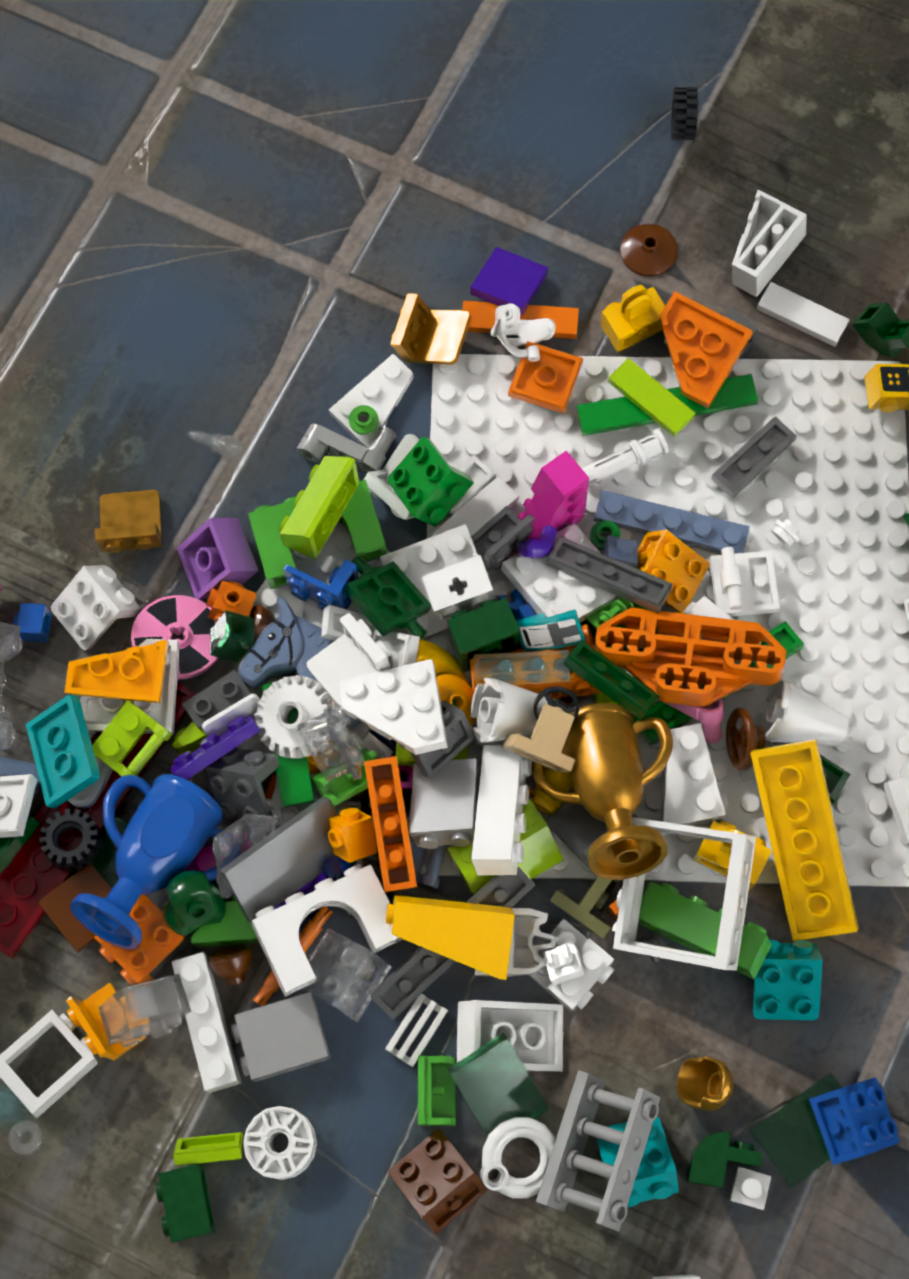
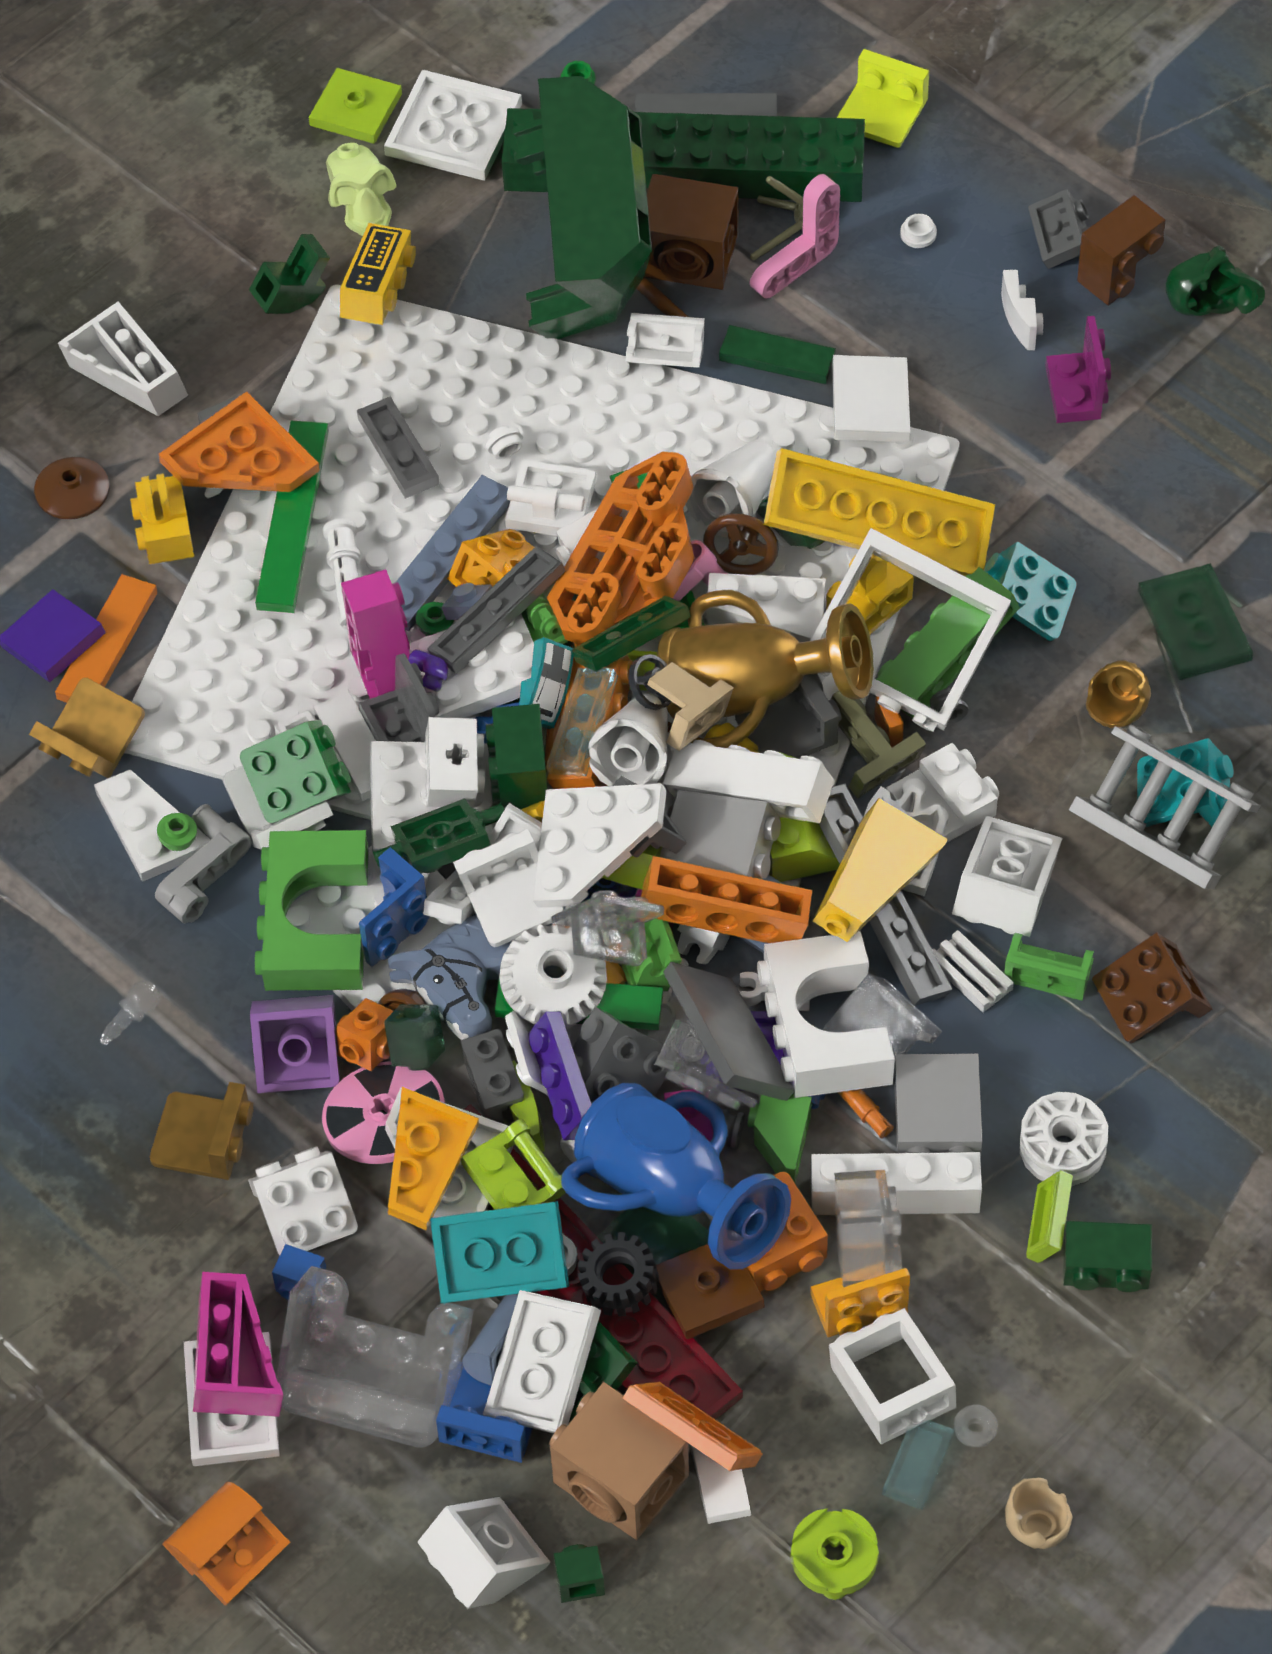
camera: 75 degrees left, 15 degrees down
(192, 903) = (748, 1138): dark green head -> none
(231, 963) = (829, 1136): reddish brown brick -> none
(320, 505) = (293, 870): lime slope -> none
(335, 867) = (750, 991): clear blue piece -> none
(352, 835) = (720, 957): light orange brick -> none
(492, 1156) = (1163, 922): white piece -> none
(497, 1085) = (1069, 887): clear green tile -> none
(509, 323) = (128, 631): white helmet -> none
(548, 380) = (203, 625): orange plate -> none
(563, 963) = (943, 786): white tile -> none
(651, 397) = (280, 522): lime tile -> none
(711, 1155) = (1200, 711): dark green brick -> none
(750, 1188) = (1243, 693): white plate -> none
(803, 314) = (230, 358): white tile -> none
(855, 1120) = (1199, 573): blue bracket -> none

